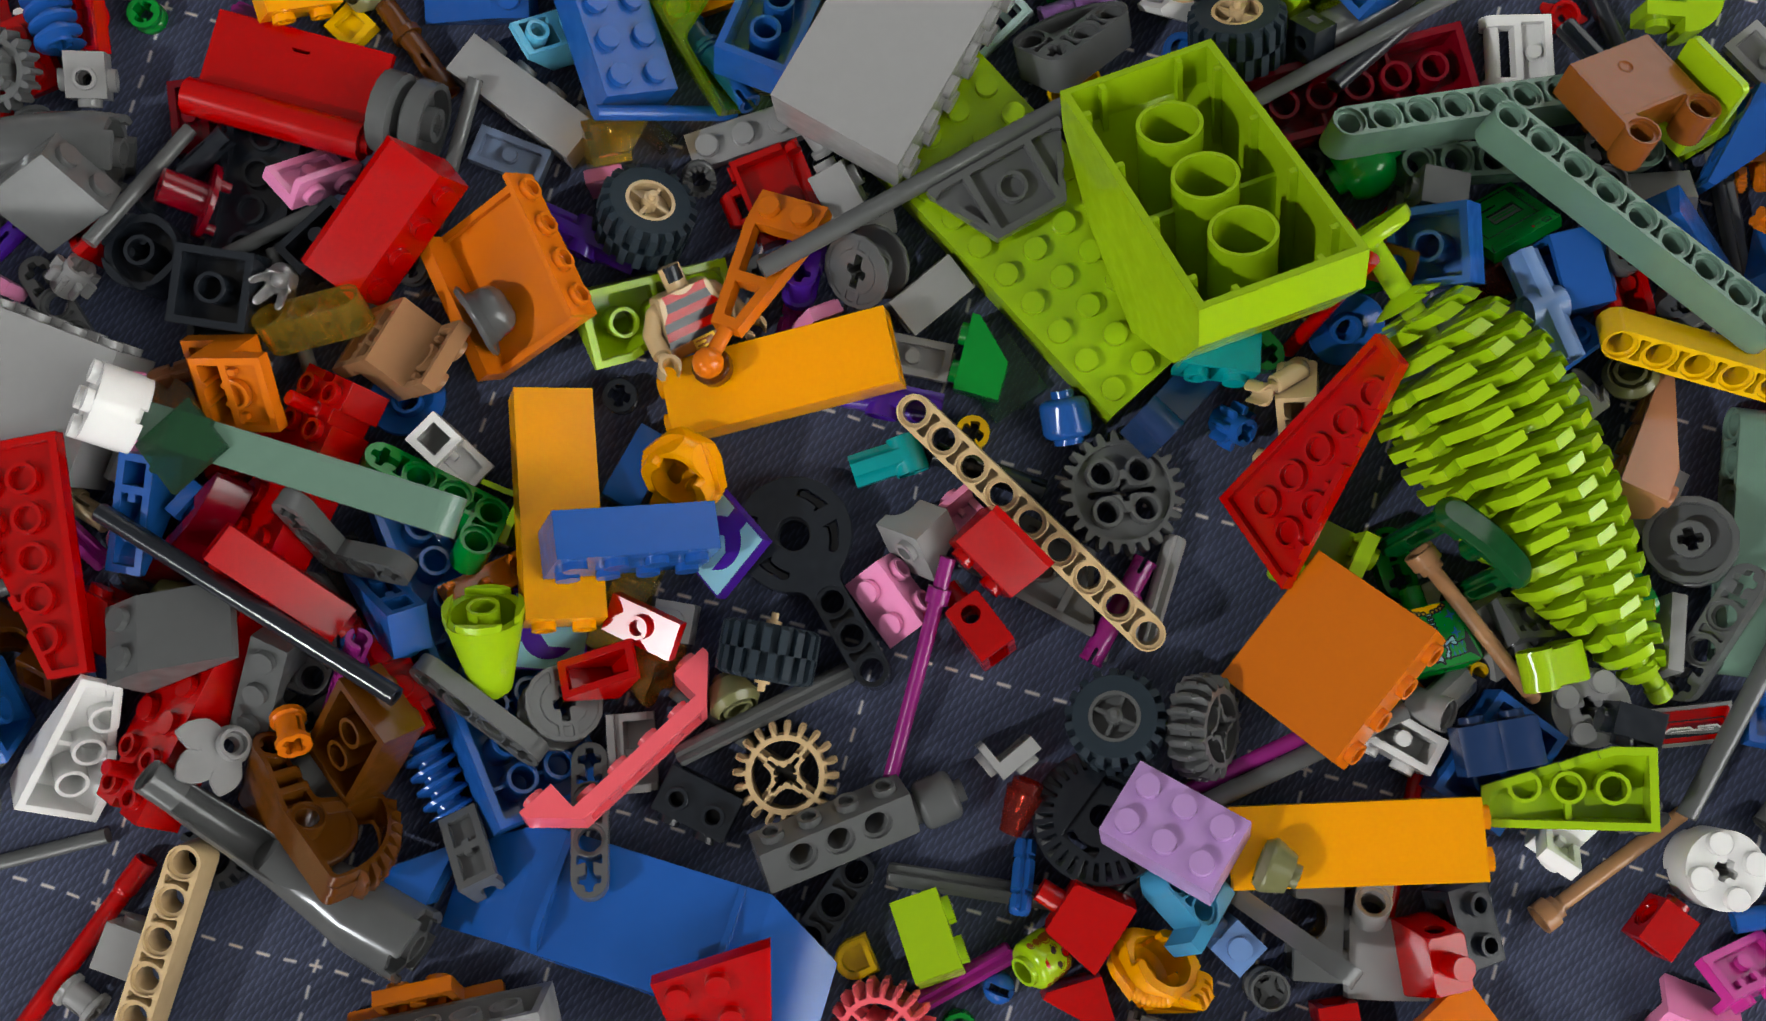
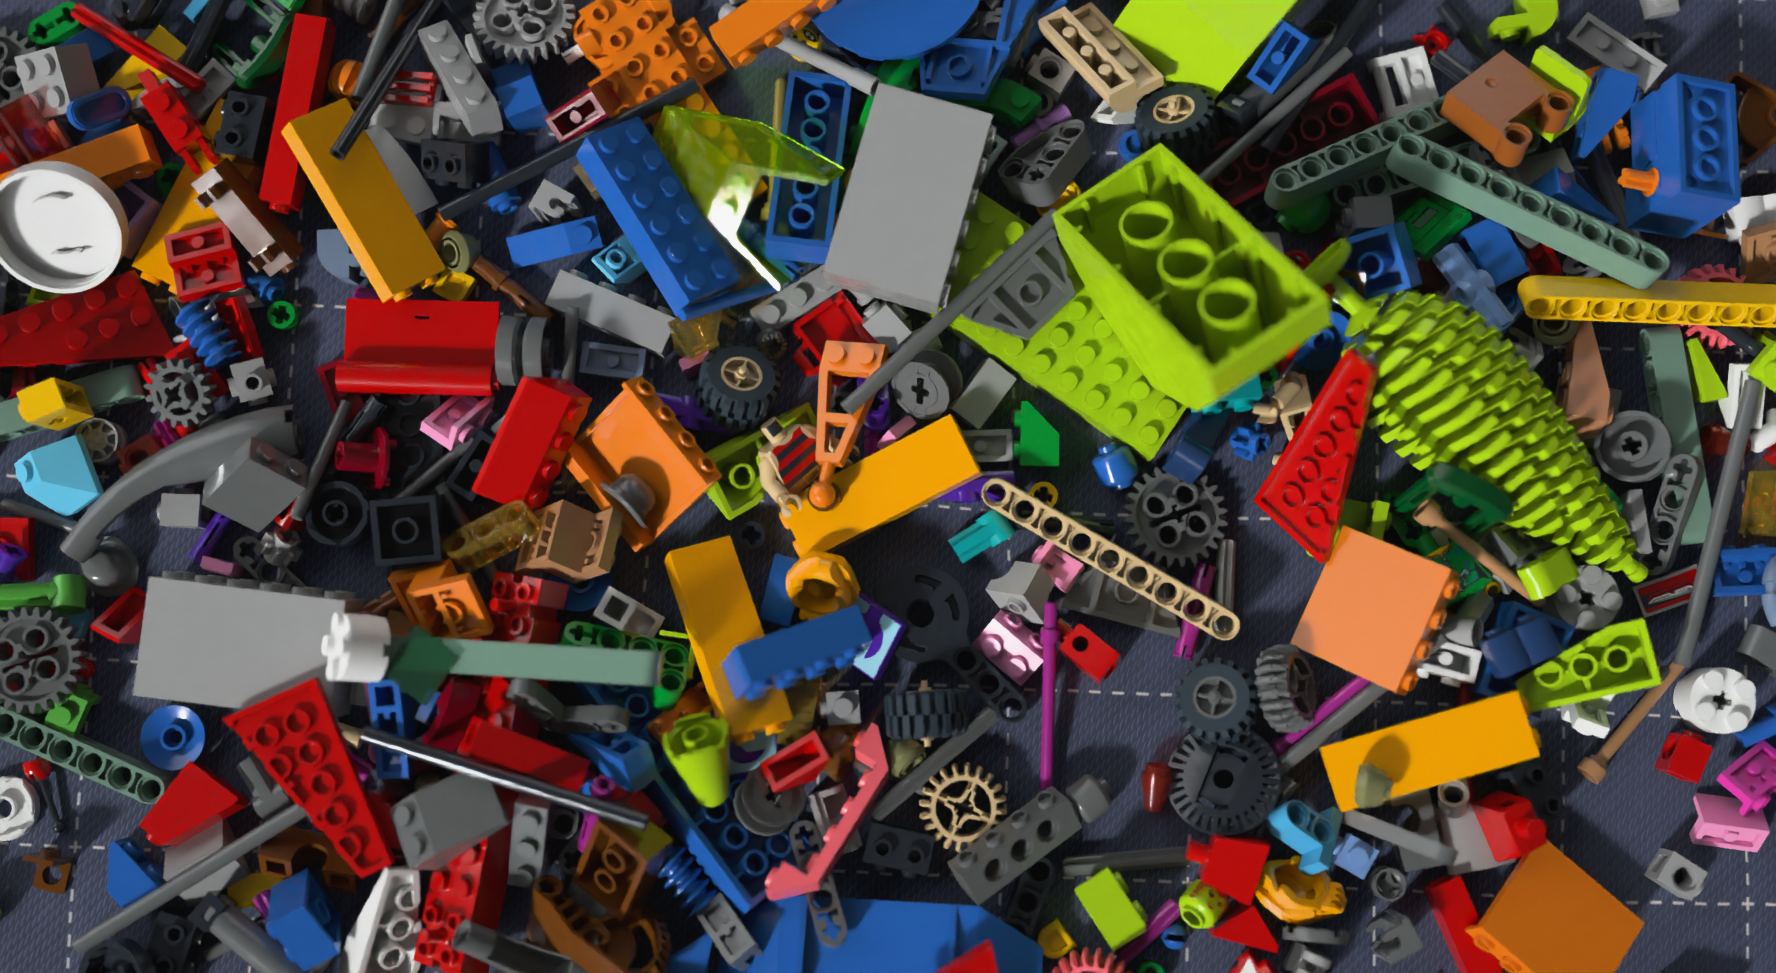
camera: 15 degrees left, 0 degrees up
(207, 757) = (501, 906): light grey plate -> none
(279, 280) = (456, 510): flat silver piece -> none
(290, 730) = (561, 871): orange bush -> none
(479, 709) = (709, 816): dark grey beam -> none
(645, 625) = (824, 716): plate -> none
(999, 552) = (1091, 589): red slope -> none
(1017, 757) = (1144, 748): light grey bracket -> none
(1022, 877) = (1172, 843): blue axle -> none
(1175, 832) = (1285, 777): lavender brick -> none
(1631, 724) = (1620, 604): black brick -> none

